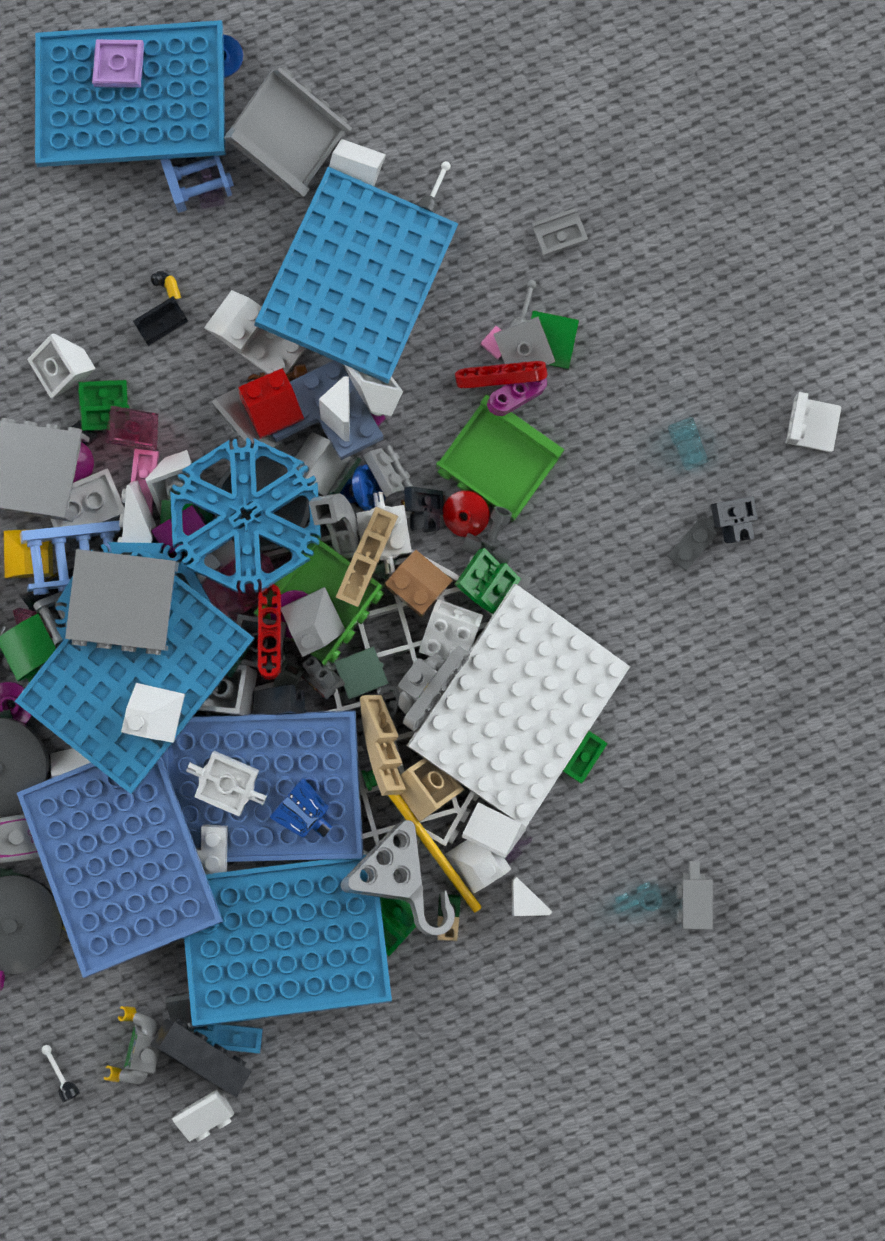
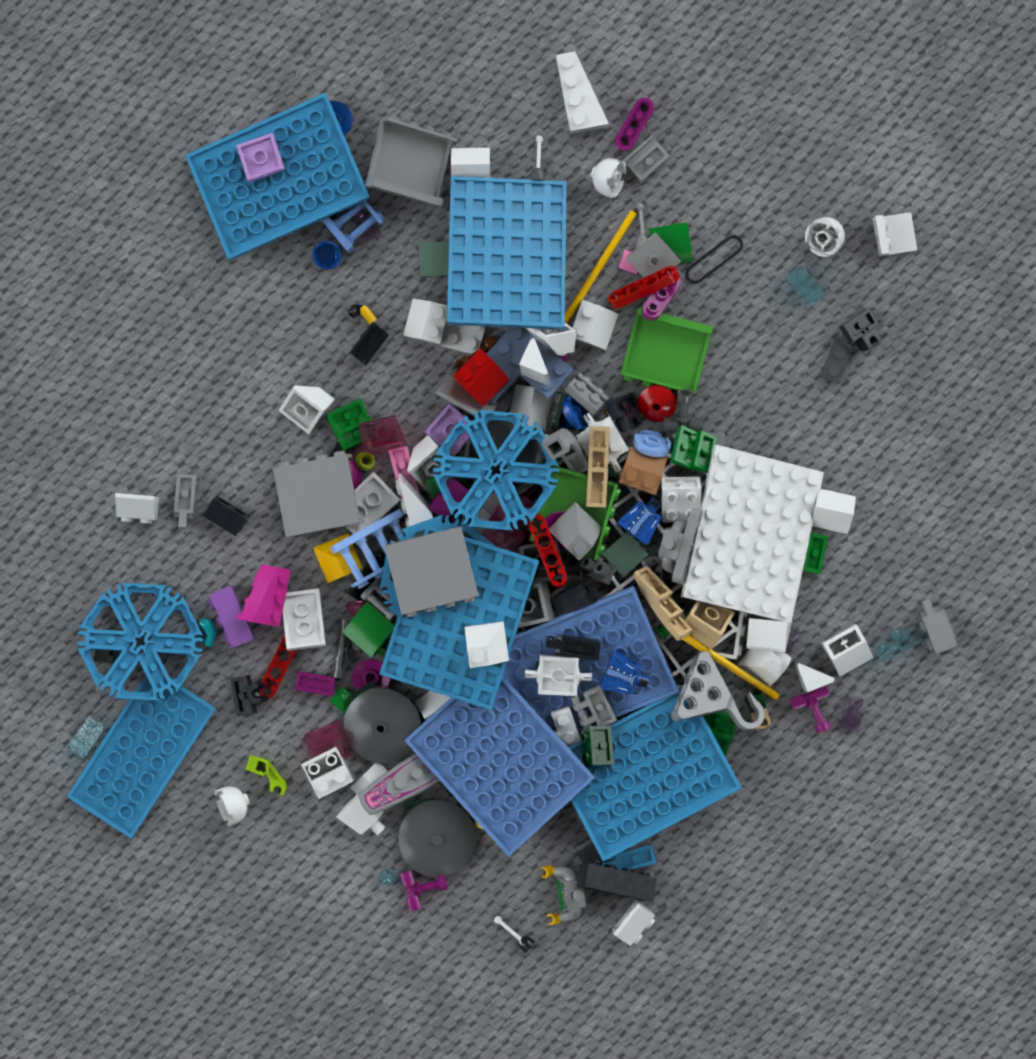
camera: 10 degrees left, 5 degrees up
(111, 453) = (371, 461): none -> lime plate
(151, 203) = (327, 255): none -> blue hair
(207, 443) = (443, 426): none -> lavender plate
(240, 885) = (597, 746): none -> dark green bracket
(258, 756) = (575, 646): none -> black hinge
(261, 840) = (599, 705): none -> light grey plate
(270, 254) = (433, 259): none -> sand green piece
(395, 639) = (642, 520): none -> blue torso
(427, 397) = (594, 324): none -> white slope
(441, 557) = (651, 443): none -> light blue tile
(458, 334) = (599, 266): none -> yellow piece
(508, 139) = (579, 98): none -> white wedge
(508, 234) = (607, 176): none -> white cylinder
(515, 929) = (811, 701): none -> magenta bar
(555, 968) = (851, 718): none -> clear purple plate
(564, 180) = (640, 118): none -> magenta plate
(580, 885) = (847, 649): none -> white slope
(592, 366) = (708, 253): none -> black piece
(624, 716) = (833, 511): none -> white slope
(732, 394) = (825, 236): none -> white cylinder

